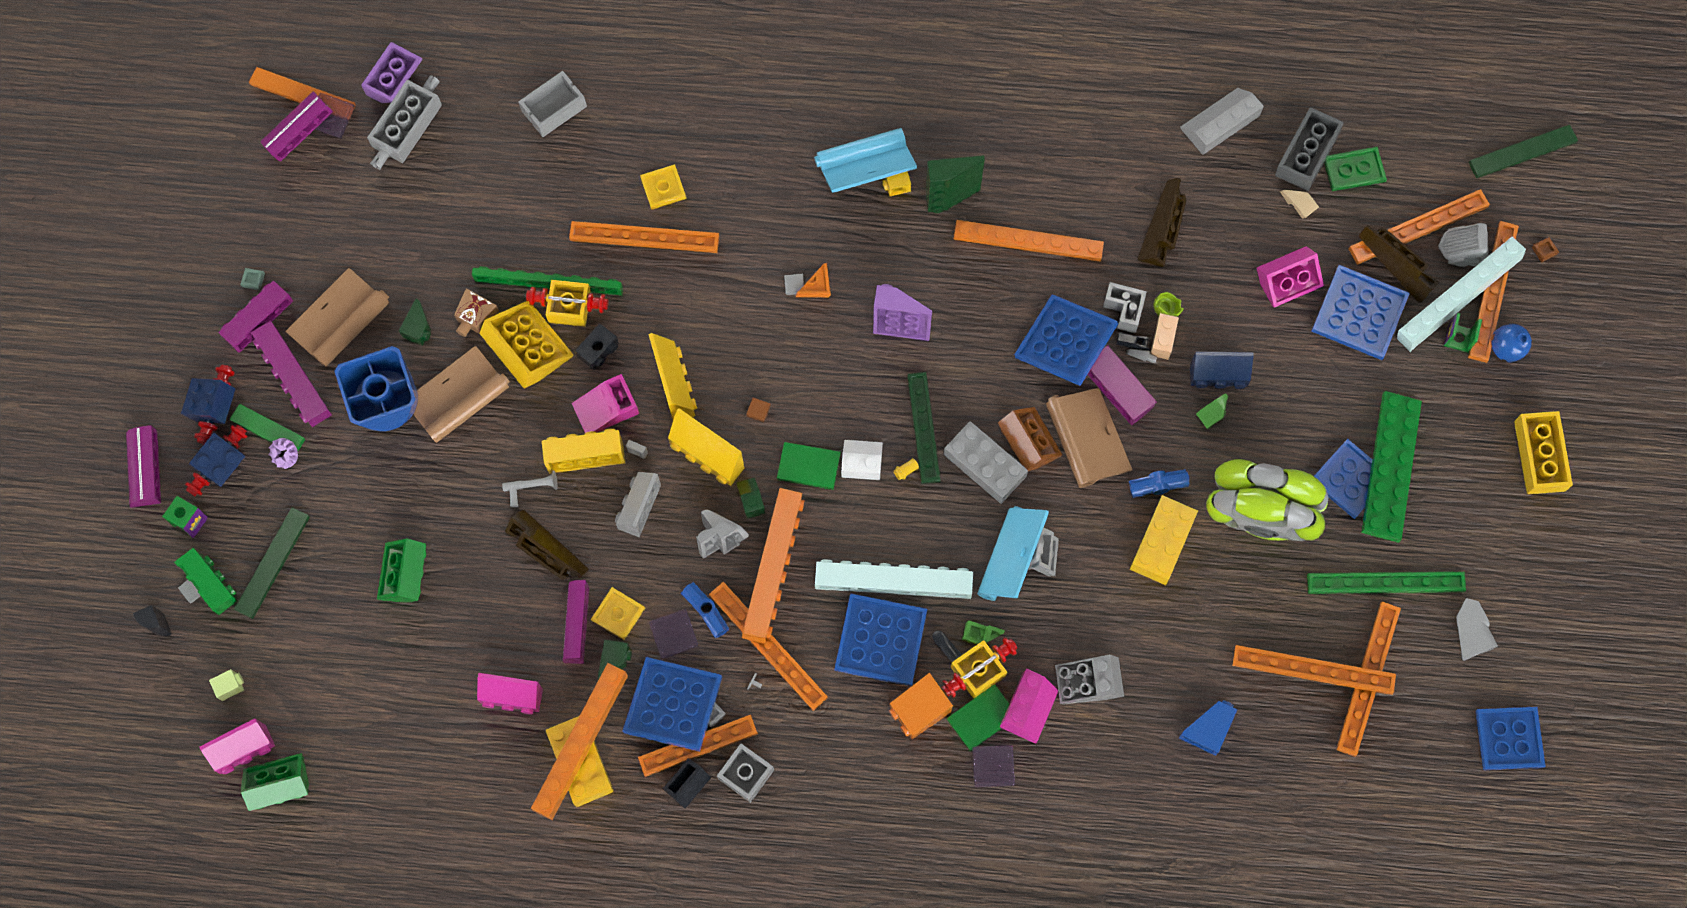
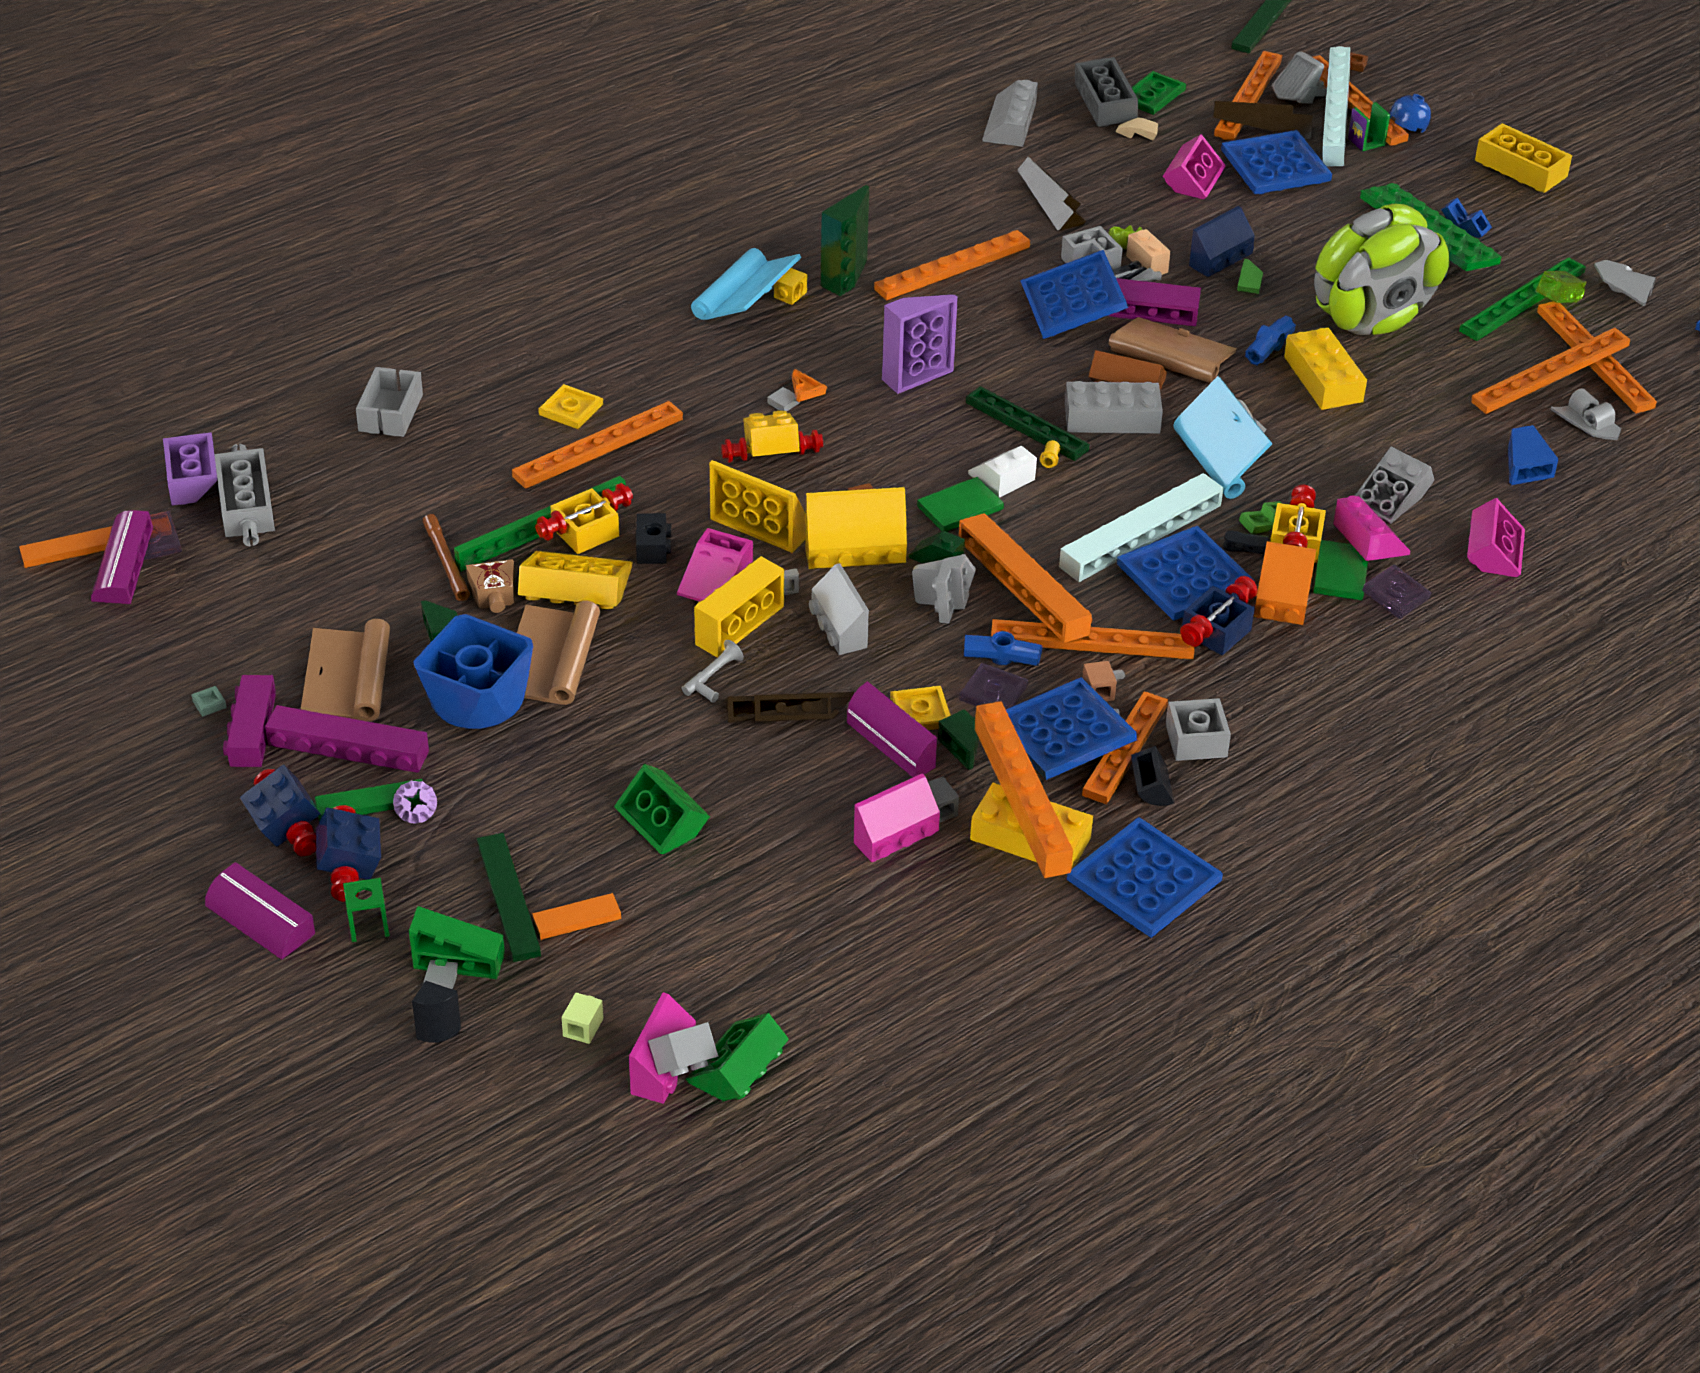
camera: 45 degrees left, 30 degrees down
(237, 761) = (683, 1048): none -> light grey brick
(292, 608) = (576, 916): none -> orange tile
(486, 237) = (456, 581): none -> dark orange piece
(552, 693) = (945, 797): none -> dark grey brick
(607, 849) = (1144, 877): none -> blue plate
(734, 683) = (1101, 679): none -> nougat brick
(744, 319) = (771, 436): none -> yellow brick
(850, 698) = (1220, 617): none -> dark blue brick
(1103, 780) = (1496, 540): none -> dark pink slope
(1298, 726) = (1590, 416): none -> light grey panel
(1414, 601) = (1561, 287): none -> clear neon green brick
(1432, 477) = (1474, 224): none -> blue slope

